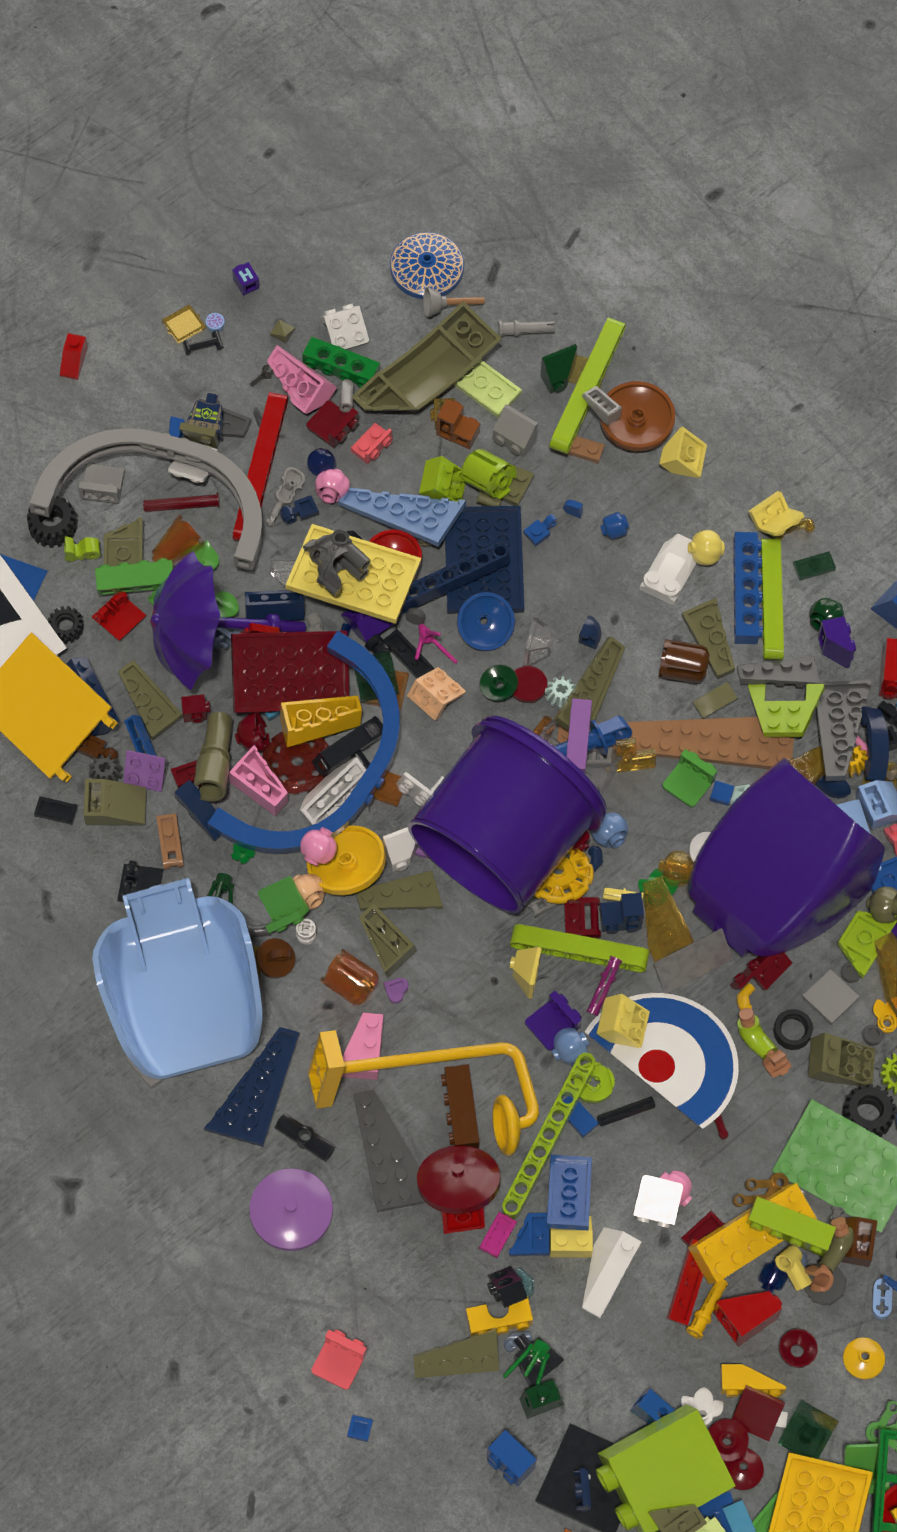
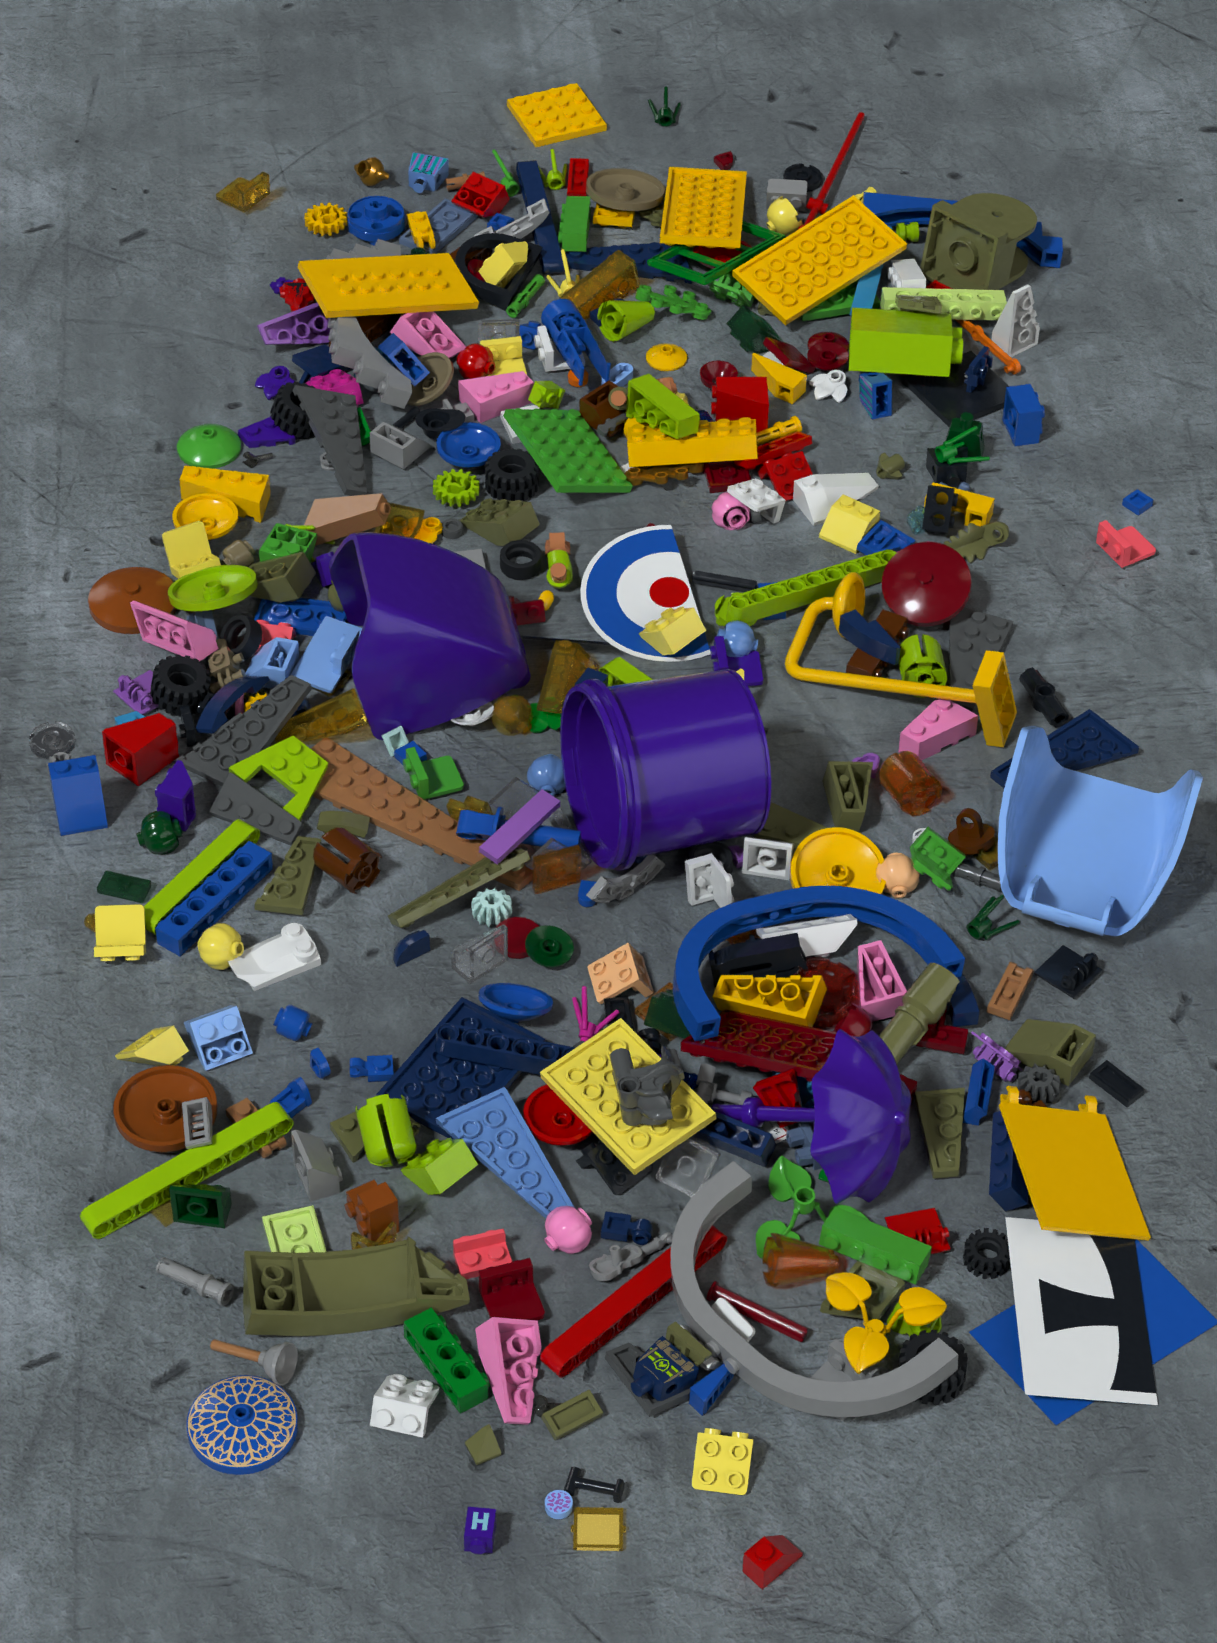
camera: 145 degrees left, 20 degrees down
(78, 537) = (870, 1345): none -> yellow plant
(140, 399) = (722, 1462): none -> light yellow bracket
(245, 376) = (572, 1414): none -> olive tile
(291, 1209) = (1094, 662): medium lavender dish -> none
(318, 846) = (862, 880): bright pink plant -> none
(320, 460) = (557, 1267): clear blue hair -> none
(346, 394) = (471, 1317): light grey bar -> none
(415, 1105) = (927, 663): none -> lime cylinder
(458, 1281) = (978, 539): none -> olive plant
(460, 1357) = (1016, 497): olive wing -> none
(465, 1091) = (869, 637): none -> dark blue slope
(569, 1192) = (829, 539): blue plate -> none
(571, 477) = (294, 1097): none -> blue tile
(585, 1332) = (890, 466): none -> olive piece
(613, 963) = (660, 662): magenta pin -> none
(653, 488) = (218, 1037): none -> light blue slope
(658, 1263) = (784, 472): none -> red bracket

